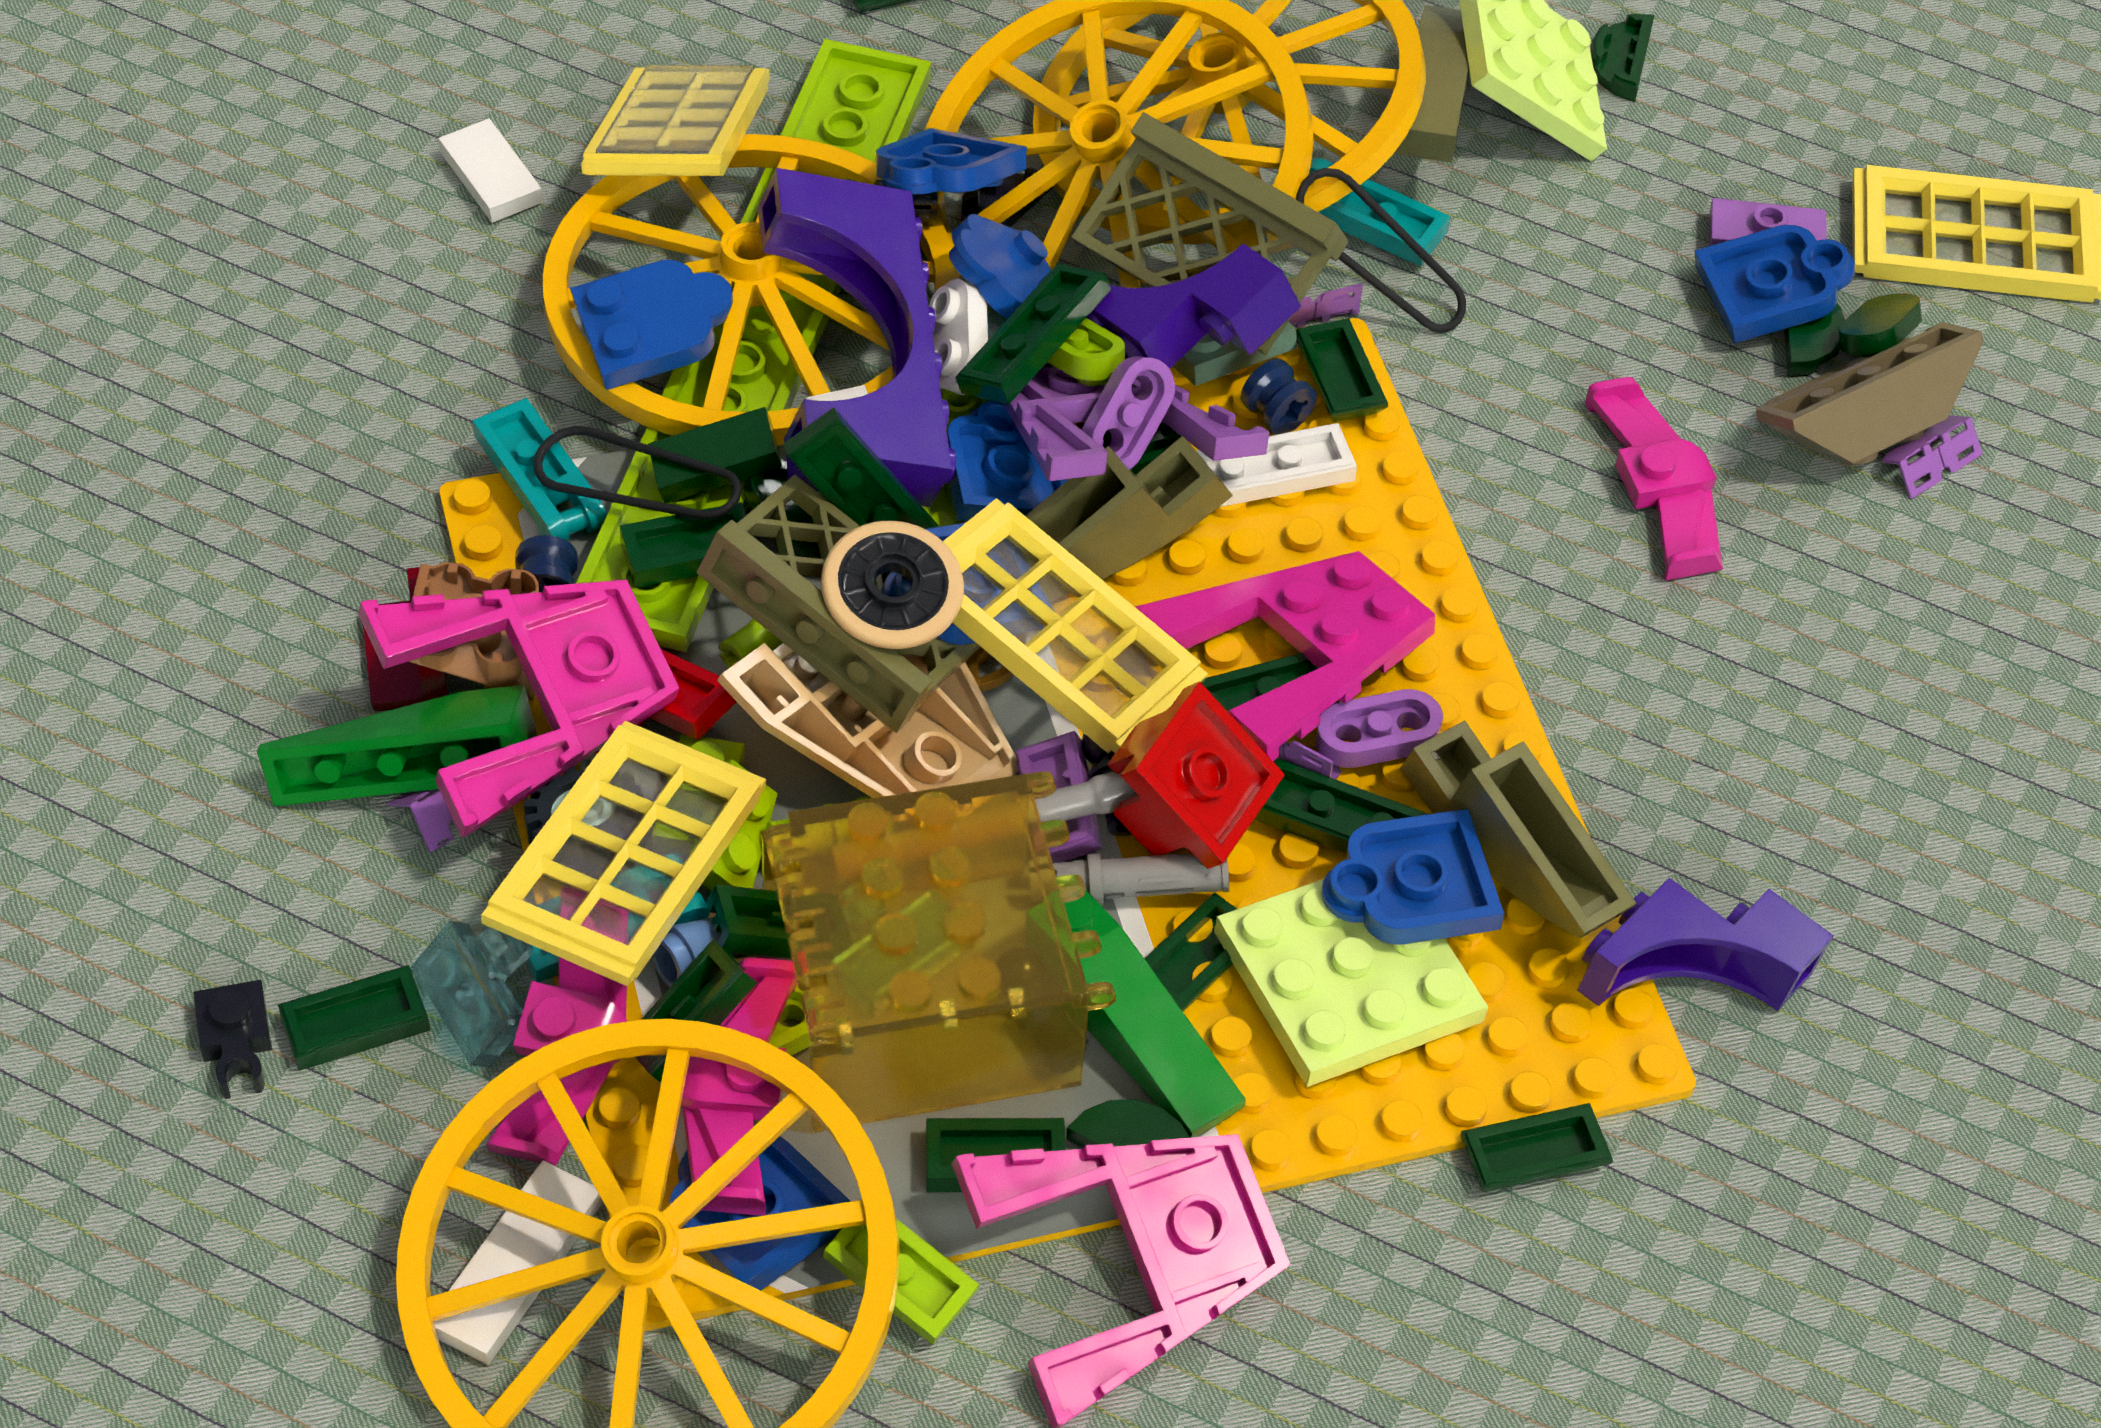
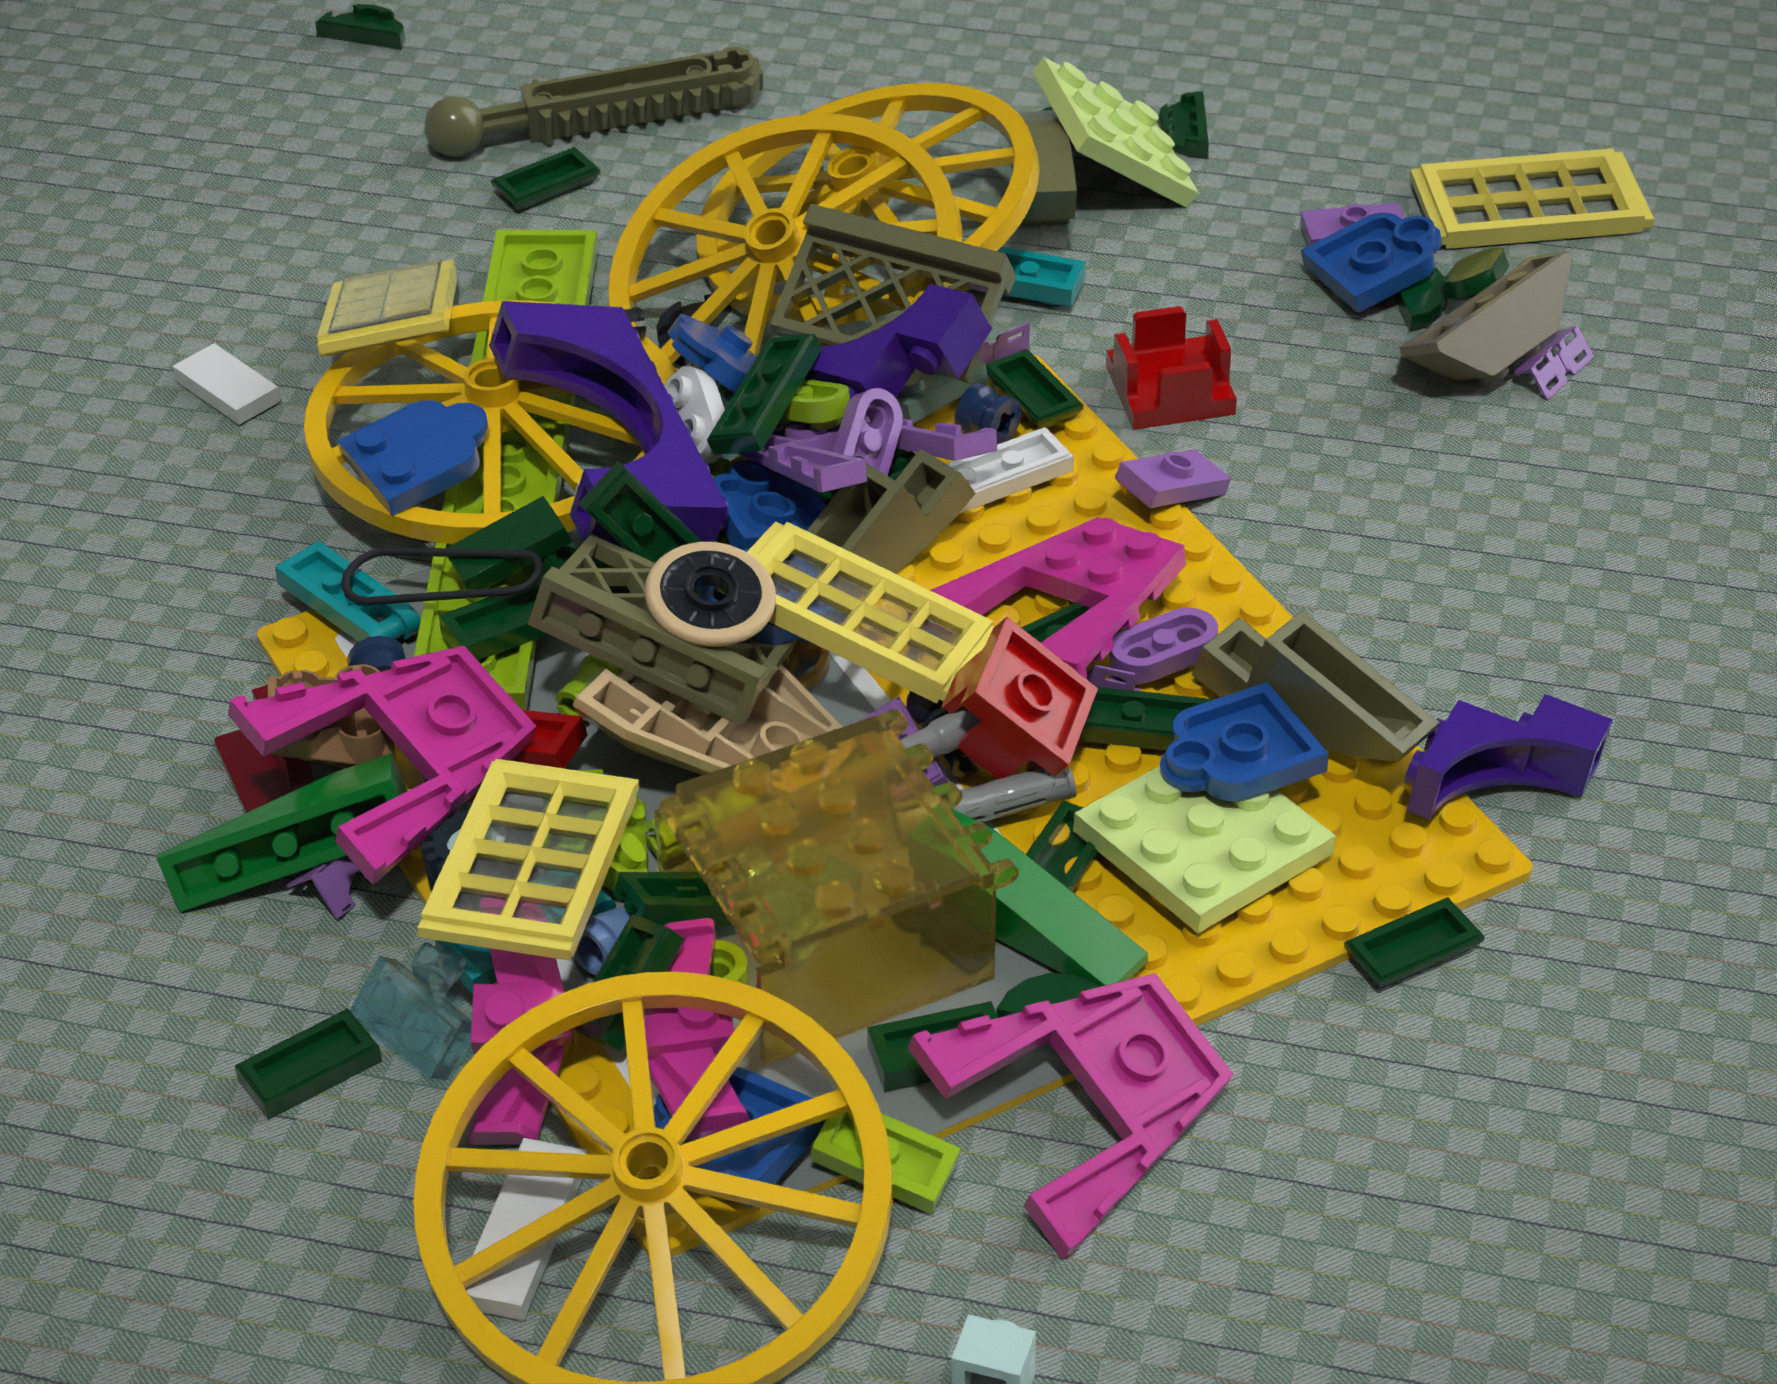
camera: 10 degrees left, 10 degrees down
(233, 1028) = (198, 1096): black plate -> none
(947, 162) = (646, 287): blue plate -> none
(1371, 279) = (1060, 279): black piece -> none
(1458, 516) = (1172, 478): none -> medium lavender plate
(1500, 378) = (1170, 376): none -> red panel
(1662, 473) = (1331, 418): dark pink plate -> none

